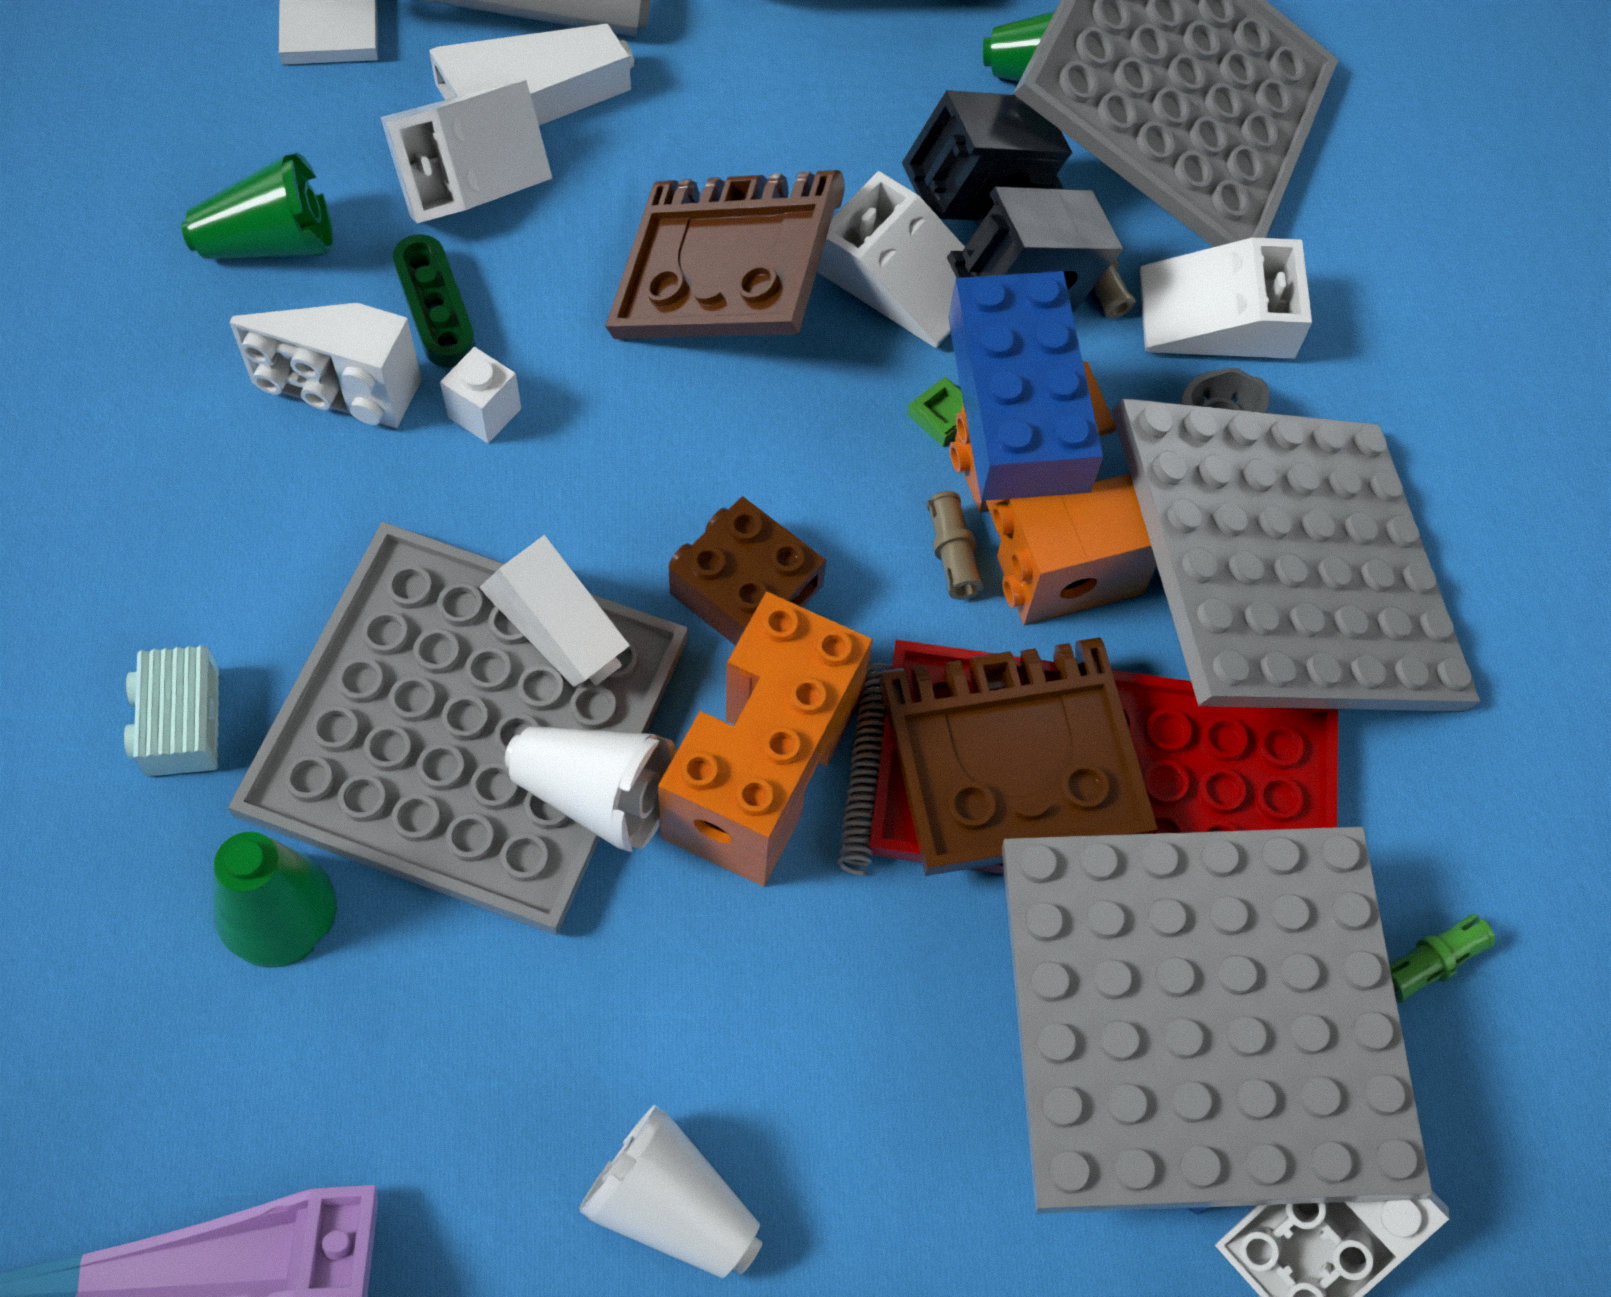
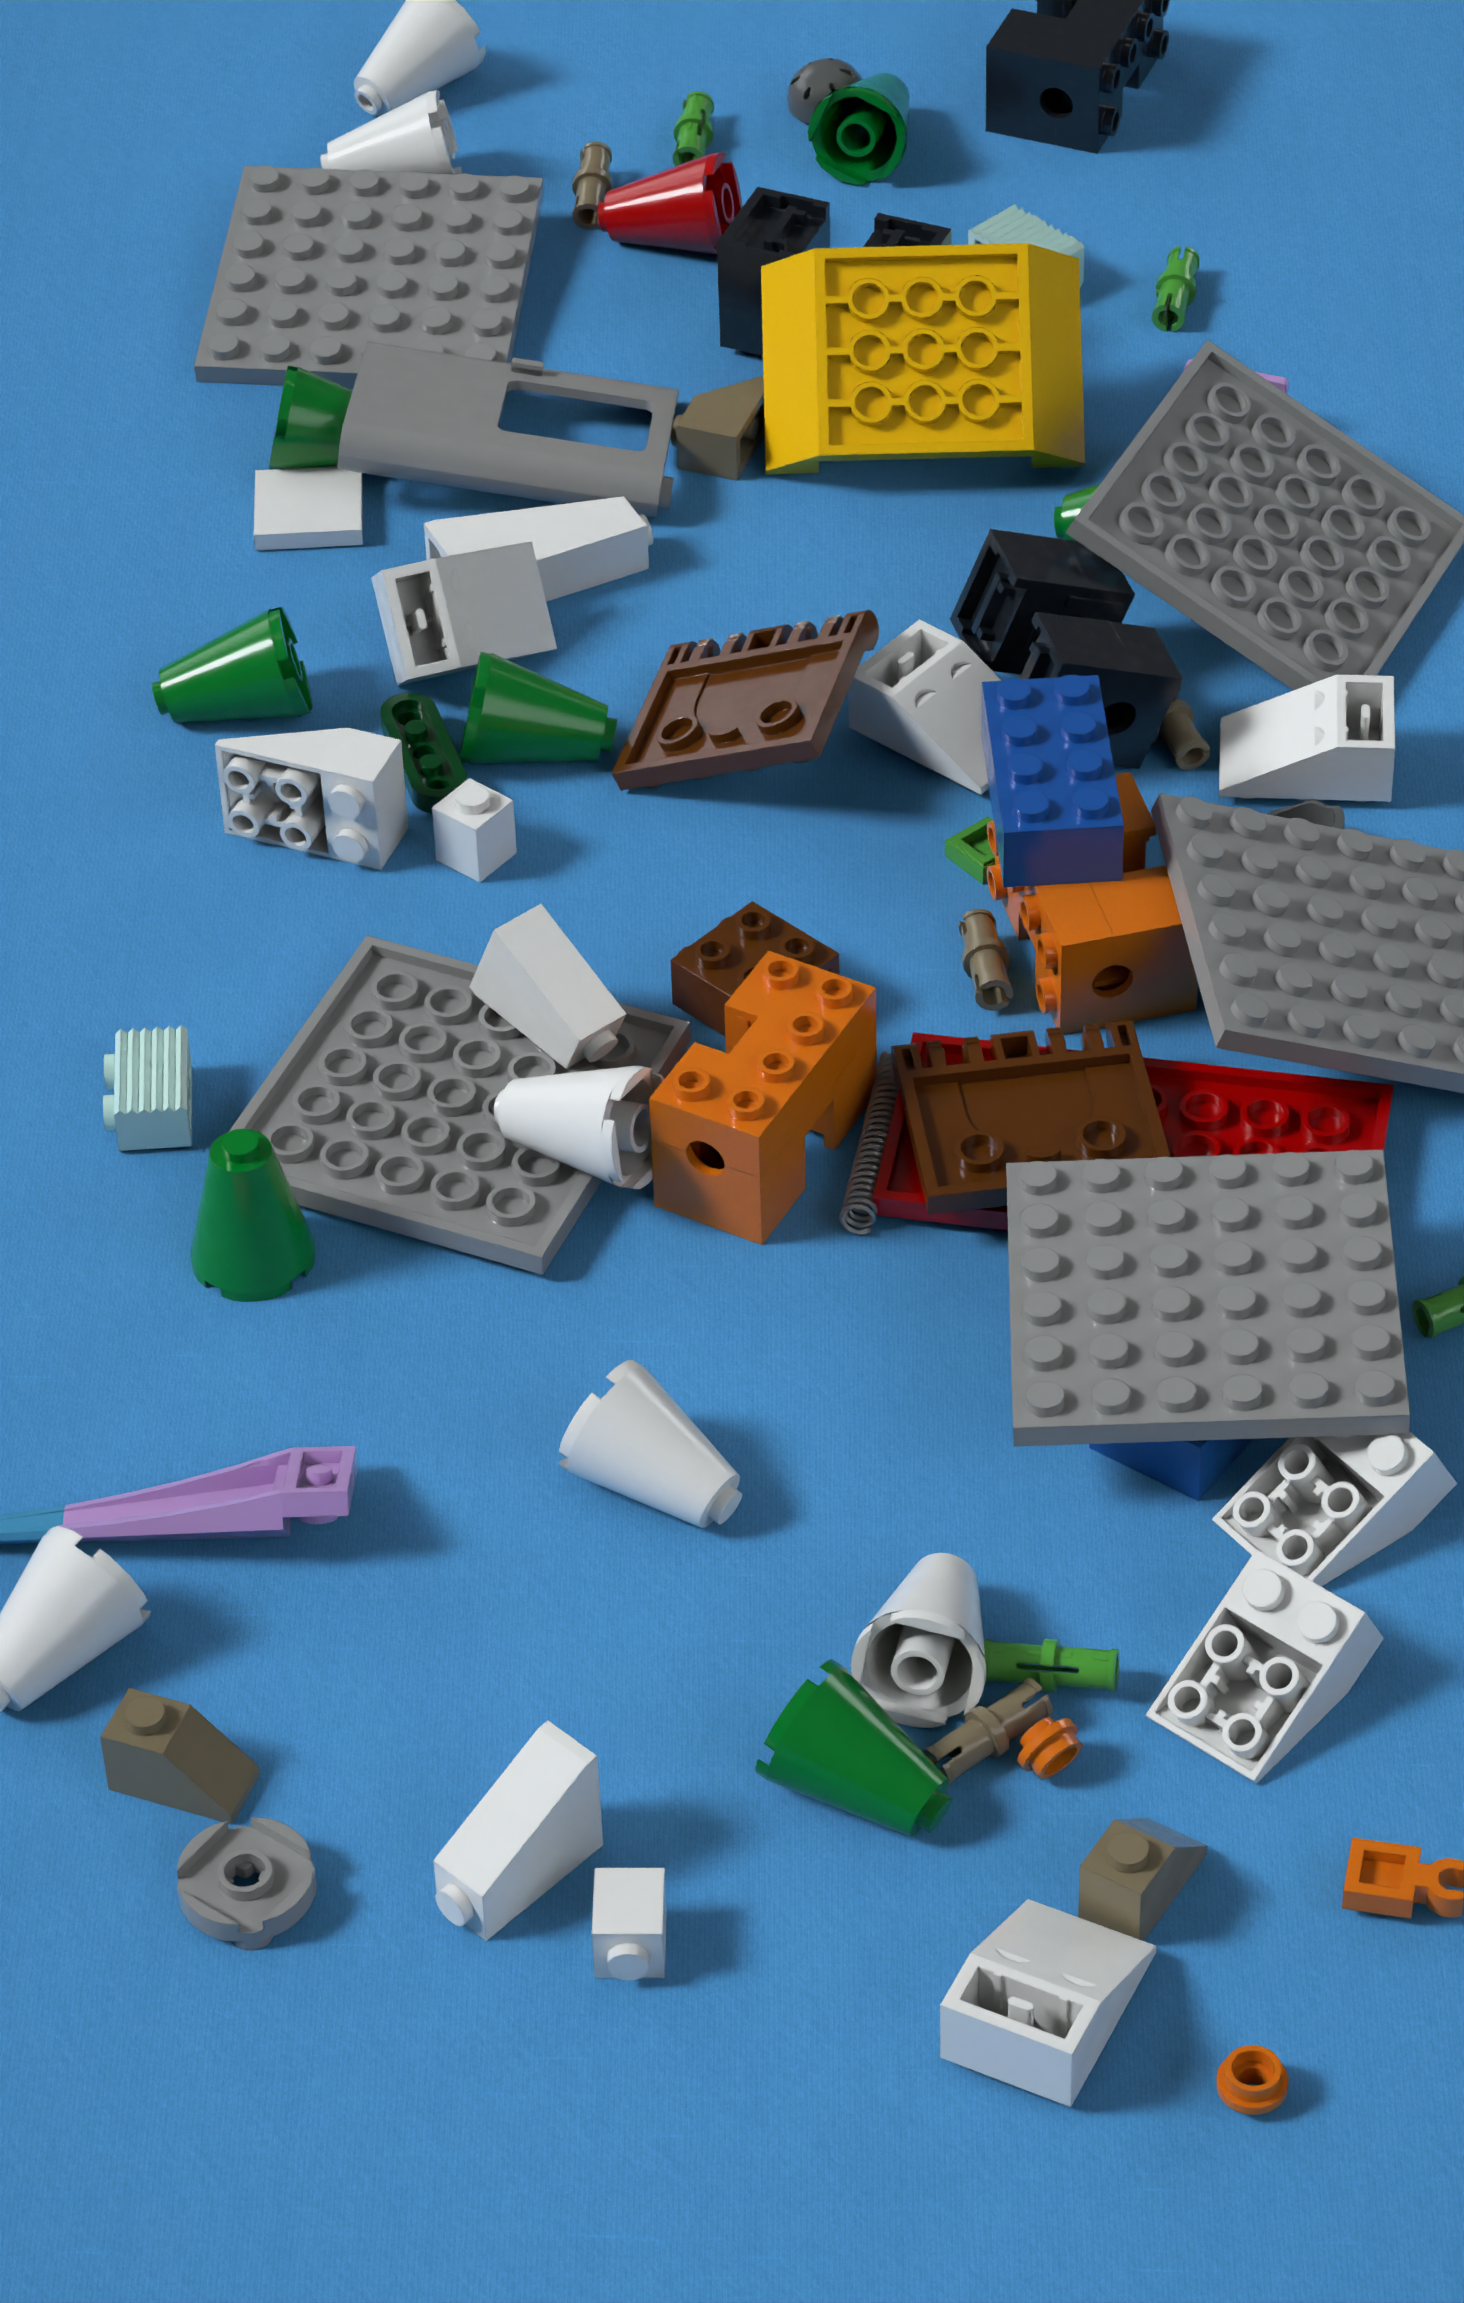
camera: 10 degrees right, 20 degrees down
(529, 268) = (530, 718): none -> green cone

